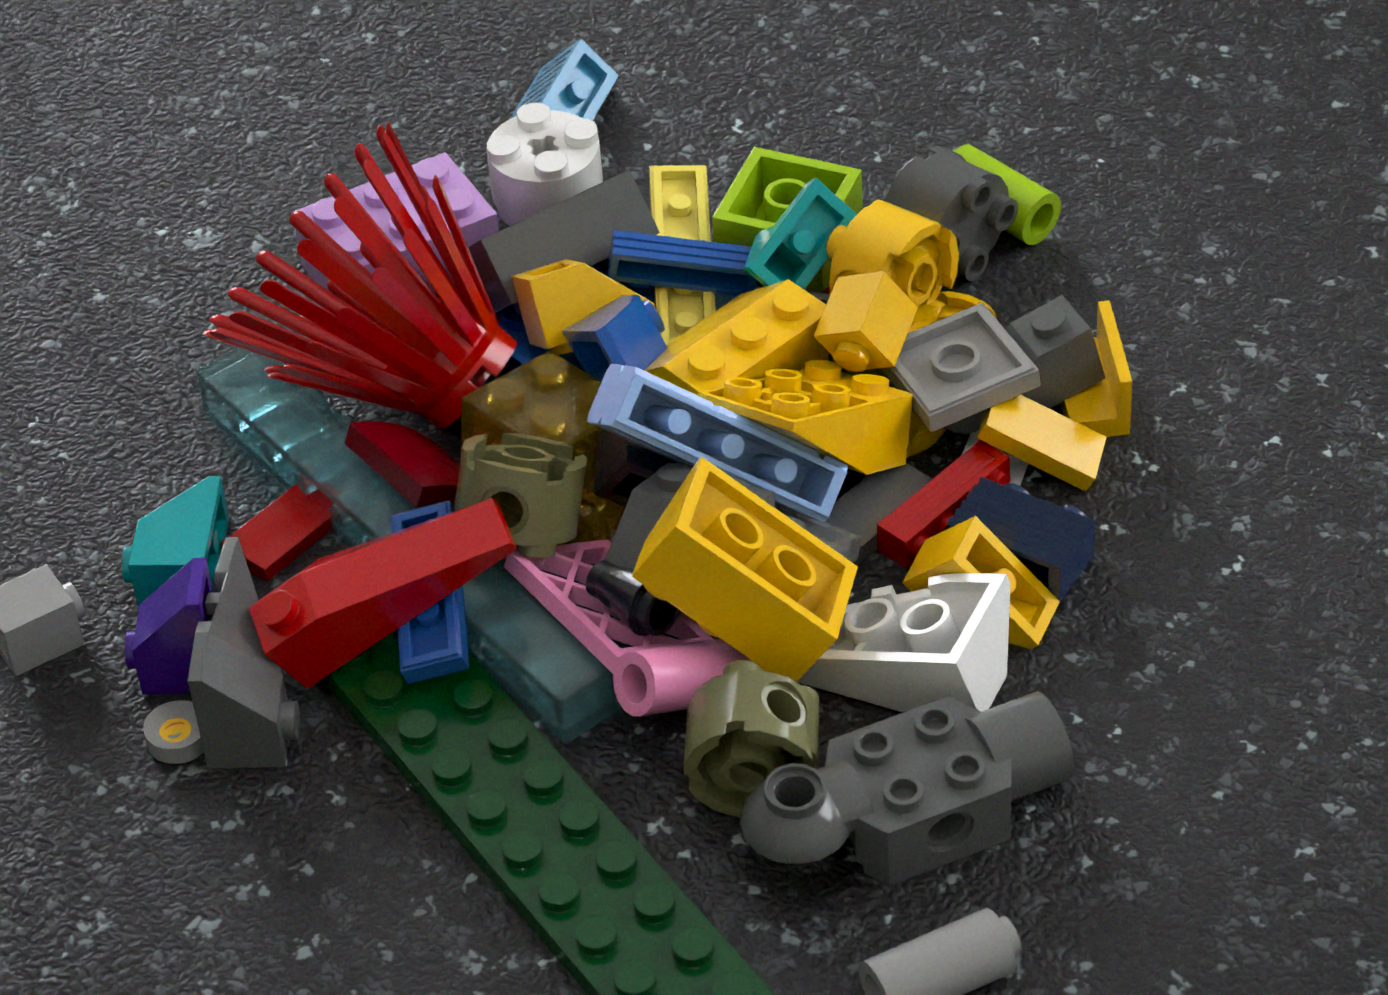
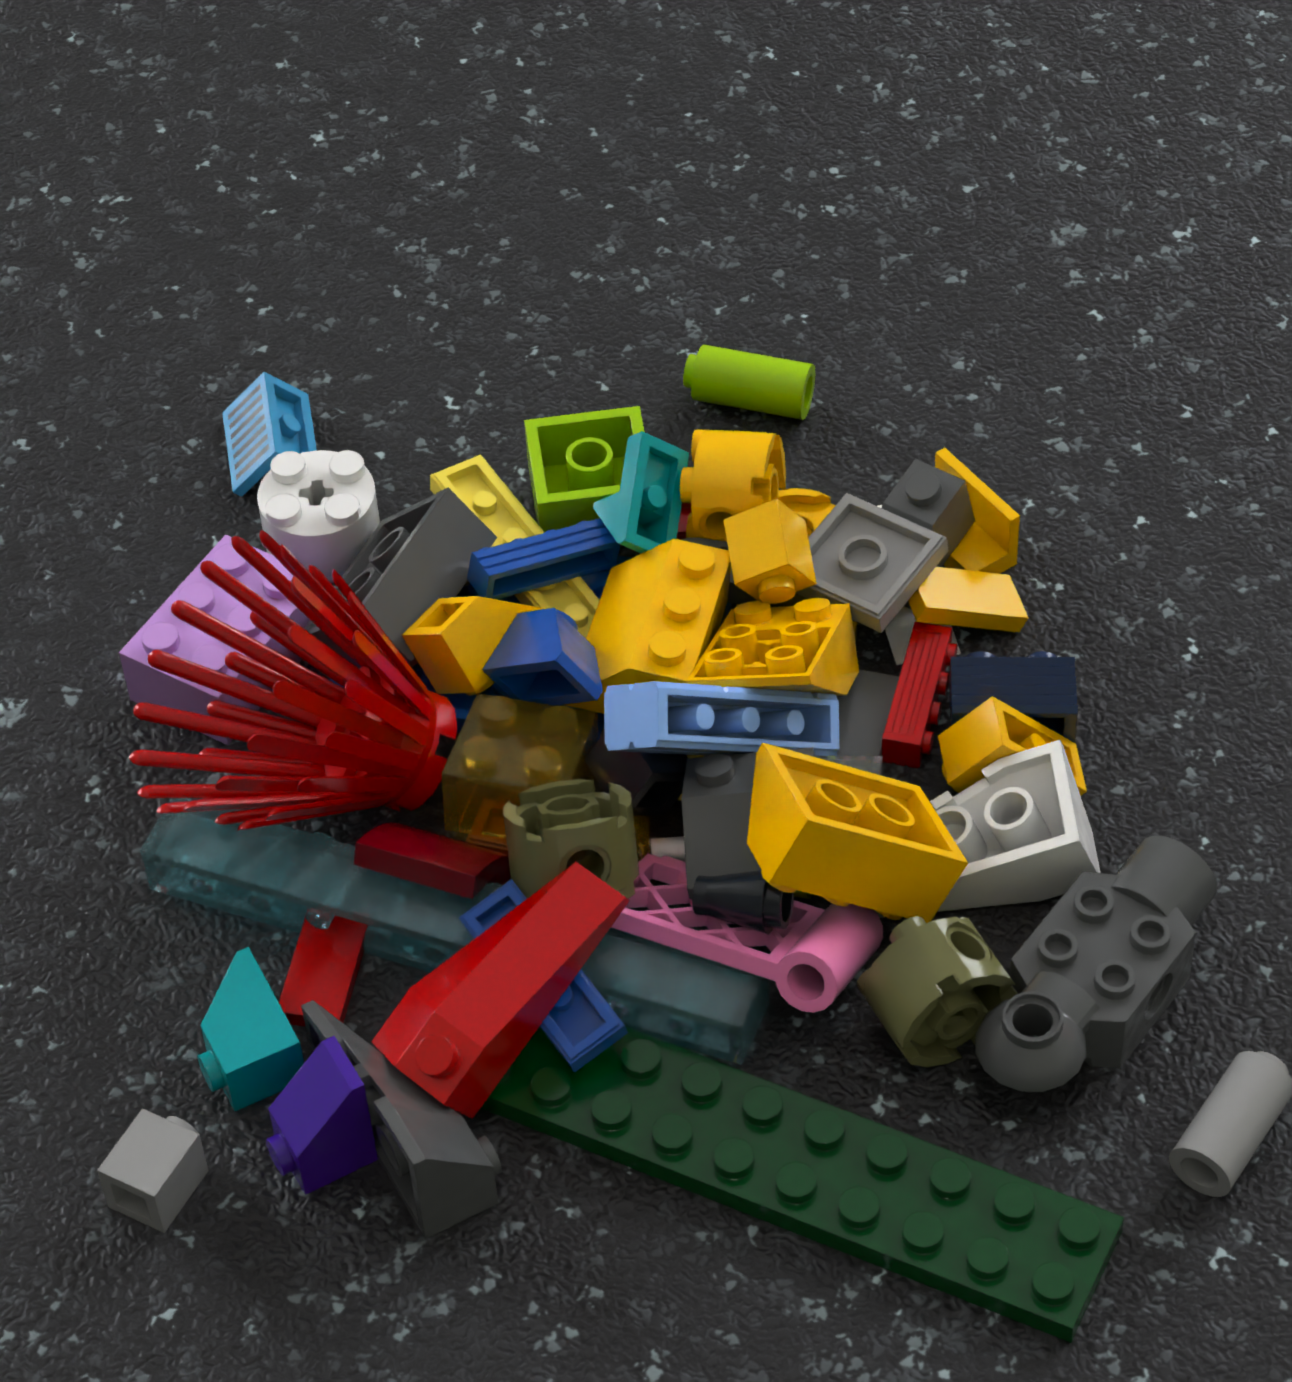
camera: 30 degrees left, 5 degrees up
(173, 733) = (376, 1216): light grey tile -> none
(959, 198) = (736, 398): dark grey brick -> none

